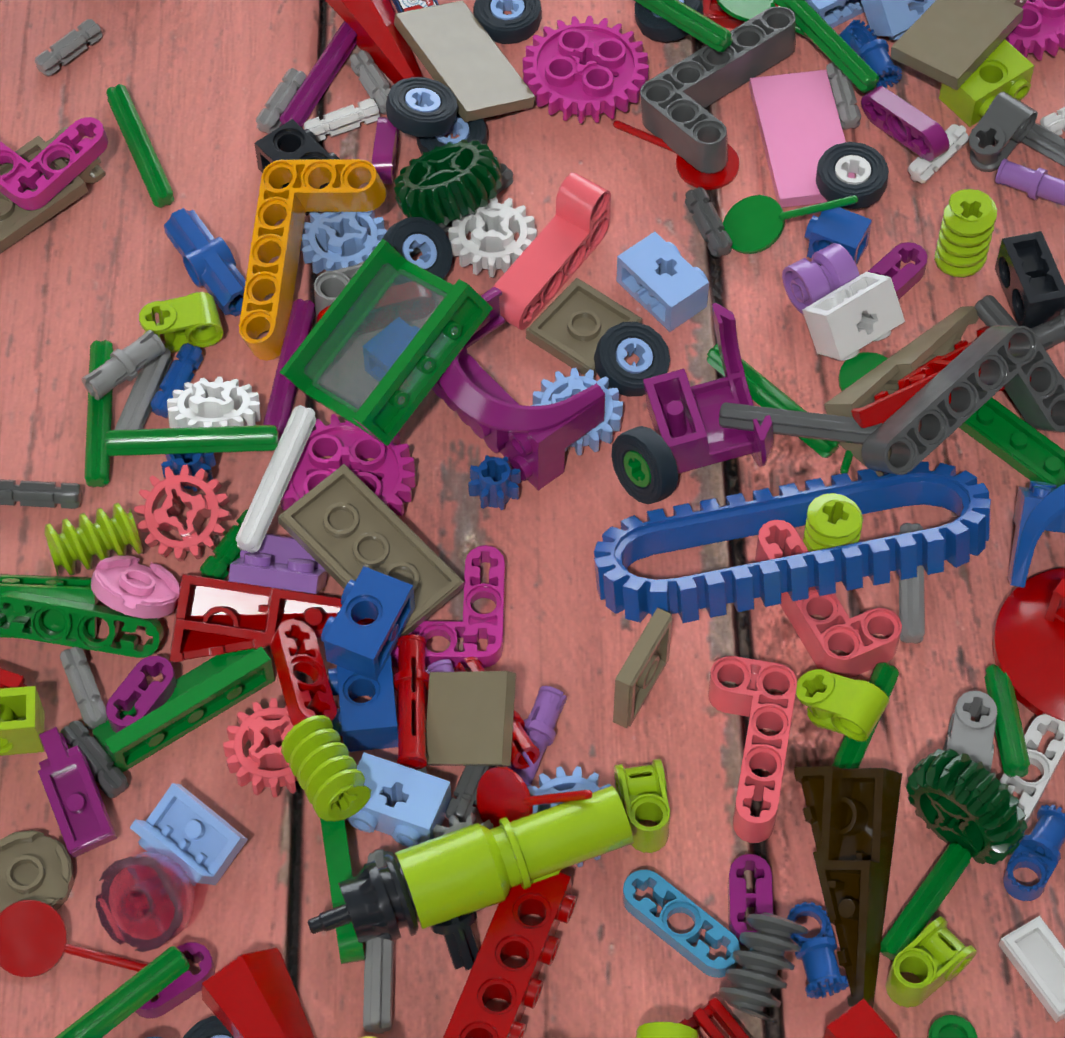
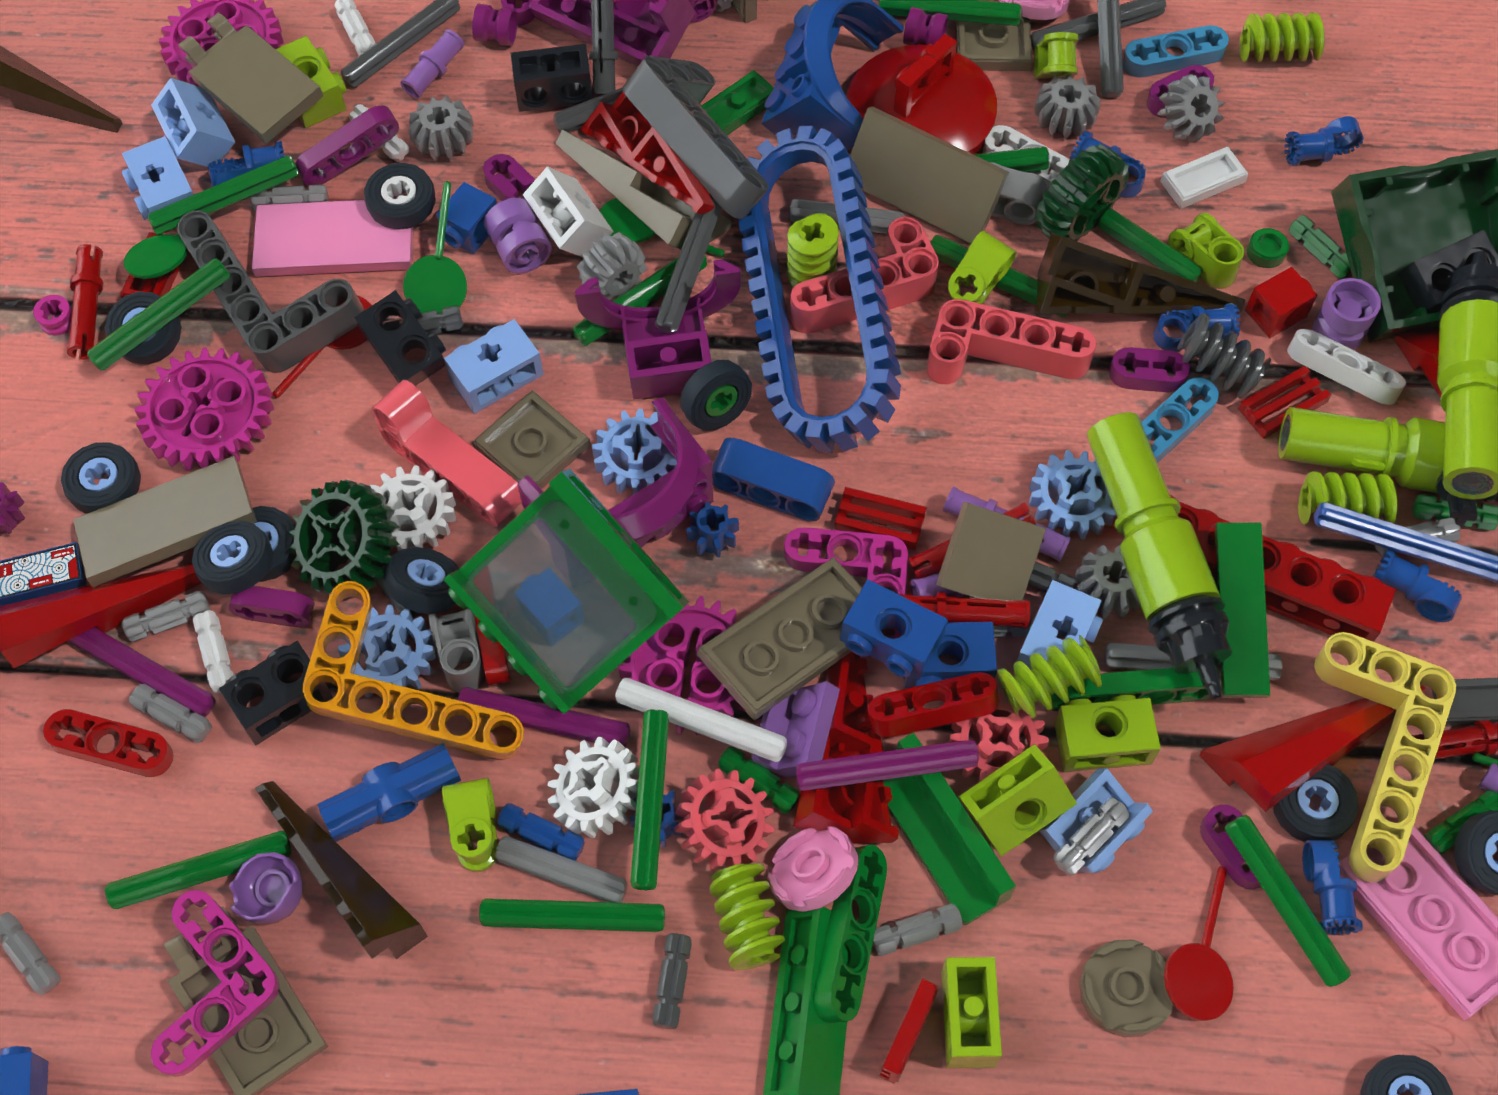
camera: 85 degrees left, 5 degrees up
(74, 795) = (1048, 933): magenta hinge -> none
(105, 252) = (359, 898): none -> dark brown wedge
(109, 777) = (999, 919): dark grey axle -> none
(116, 189) = (266, 888): none -> medium lavender hair
(123, 365) = (529, 876): light grey pin -> none
(136, 692) = (941, 860): magenta beam -> none
(145, 900) = (1175, 854): clear pink cylinder -> none
(168, 825) = (1091, 836): none -> light grey axle
(202, 754) = (1018, 800): none -> lime brick
(230, 632) = (887, 765): none -> magenta axle
(255, 79) = (94, 729): none -> red beam
(282, 874) = (1086, 749): none -> lime brick
(426, 969) = (1243, 592): none -> green tile
(505, 794) = (1076, 529): red piece -> none
(534, 605) = (881, 511): none -> red tile
(558, 530) = (771, 479): none -> blue beam
(636, 339) = (579, 414): black bush -> none
(642, 668) = (940, 414): dark tan tile -> none
(645, 798) = (1057, 433): lime piece -> none
(667, 193) = (395, 344): none -> black brick
(791, 360) = (615, 263): none -> light grey gear
(936, 193) = (441, 127): none -> light grey gear
(965, 233) = (494, 113): lime piece -> none
(966, 643) = (926, 175): none -> dark tan tile
(1003, 127) = (373, 75): dark grey piece -> none

